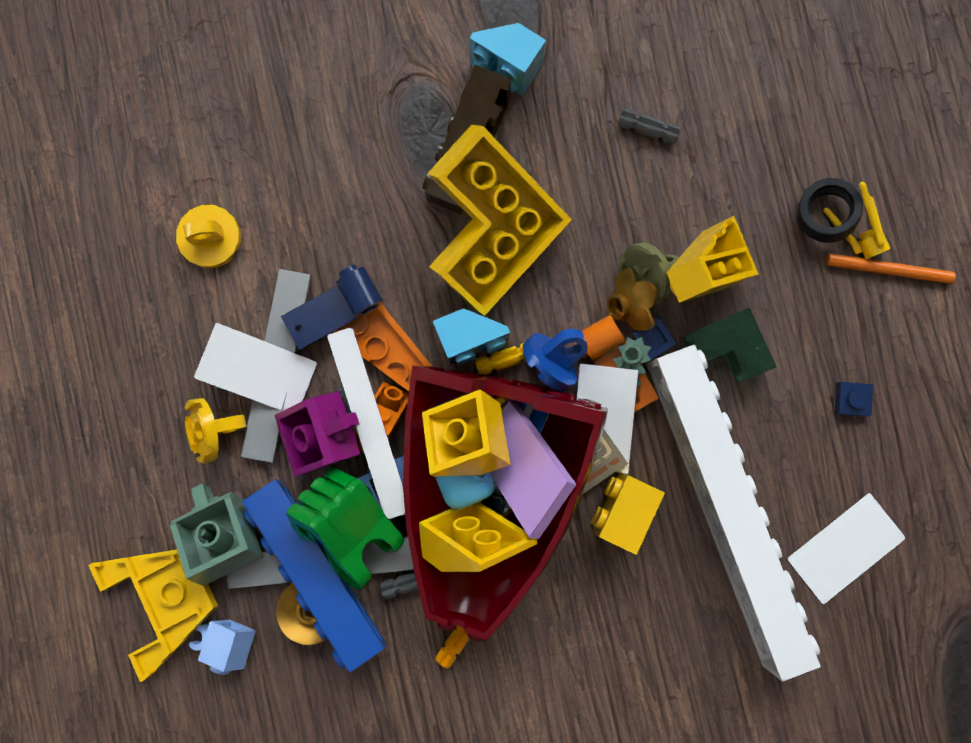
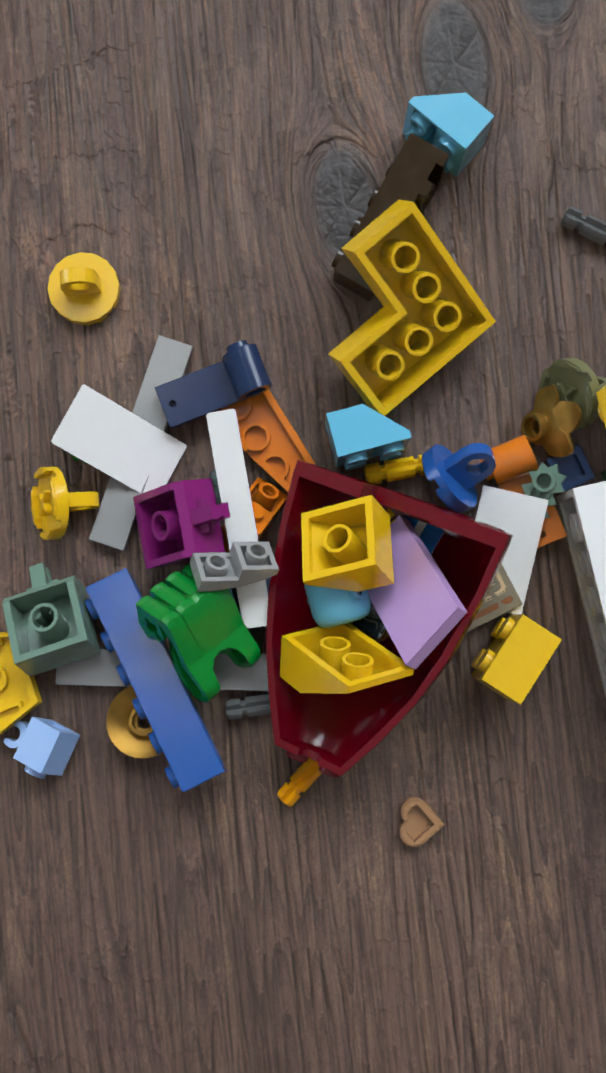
camera: 10 degrees right, 0 degrees up
(377, 465) = (240, 567): none -> light grey slope
(563, 666) = (418, 822): none -> medium nougat tile

